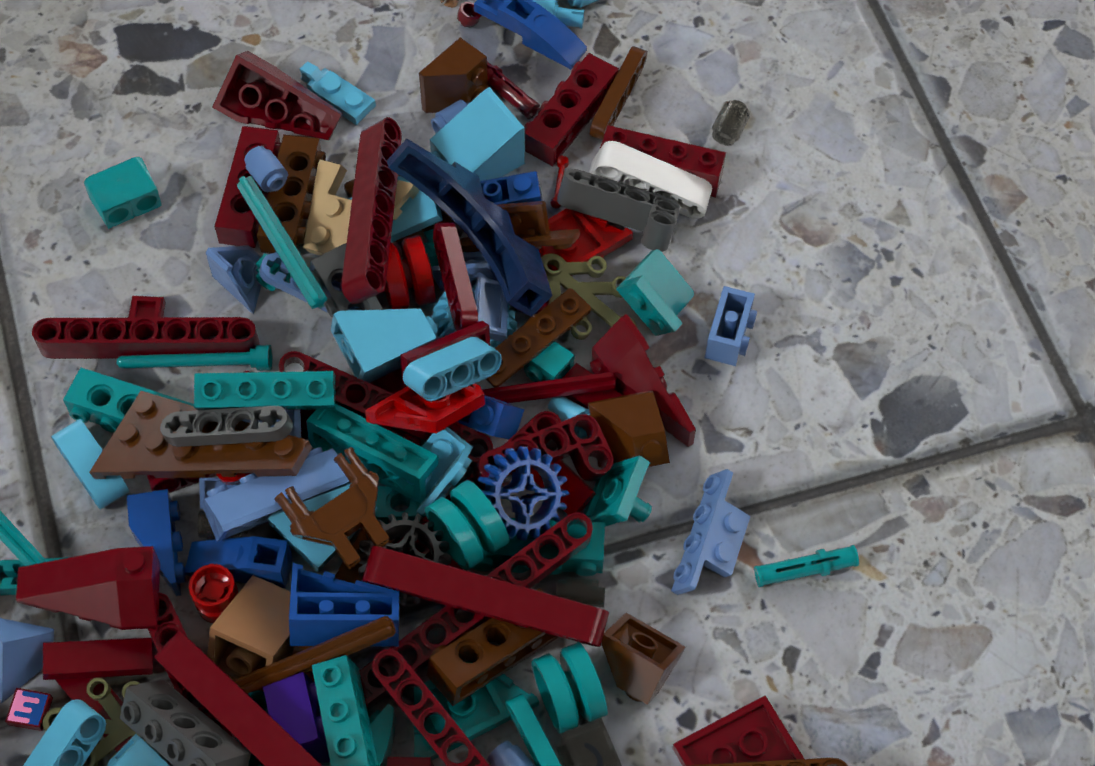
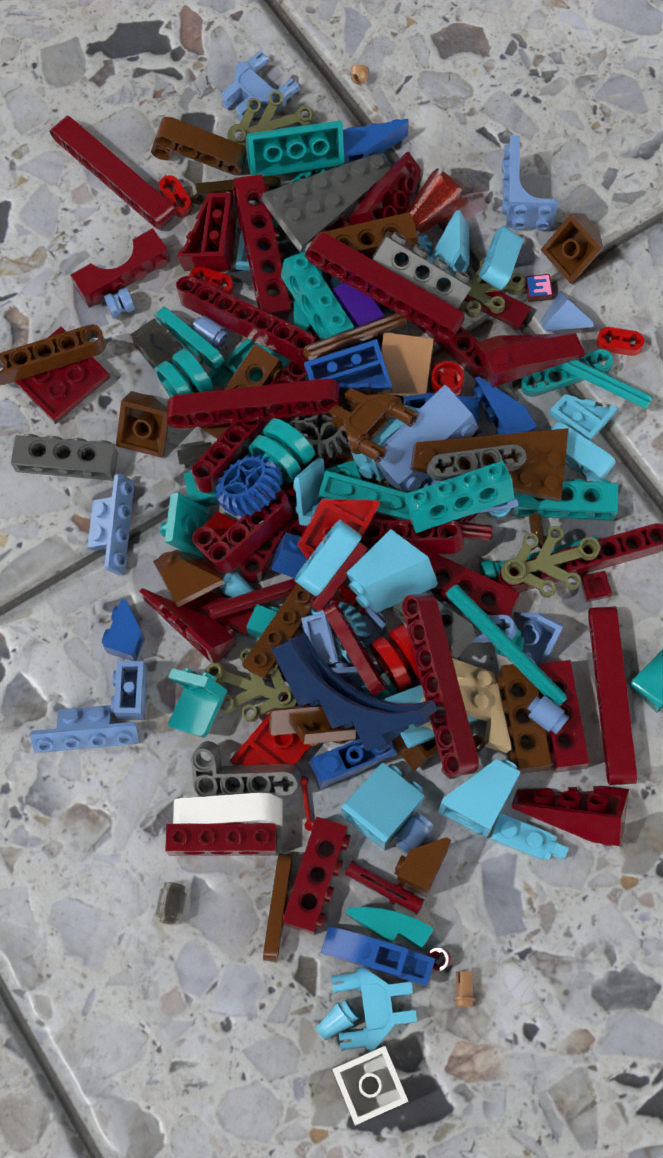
camera: 170 degrees right, 10 degrees up
(61, 509) = (582, 415): none -> medium azure wing
(97, 658) = (510, 321): dark red tile -> none
(183, 197) = (612, 696): none -> dark red beam
(184, 380) = (536, 528): none -> reddish brown arm
(191, 327) = (547, 562): none -> olive plant
(272, 306) = (480, 586): none -> dark red brick
(360, 109) = (481, 797): none -> medium azure slope
(508, 50) = (391, 924): none -> teal slope
(723, 395) = (124, 636): none -> blue slope
(749, 623) = (100, 467): none -> dark grey brick
(794, 313) = (84, 729): none -> medium blue bracket
(822, 562) = (39, 521): teal pin -> none

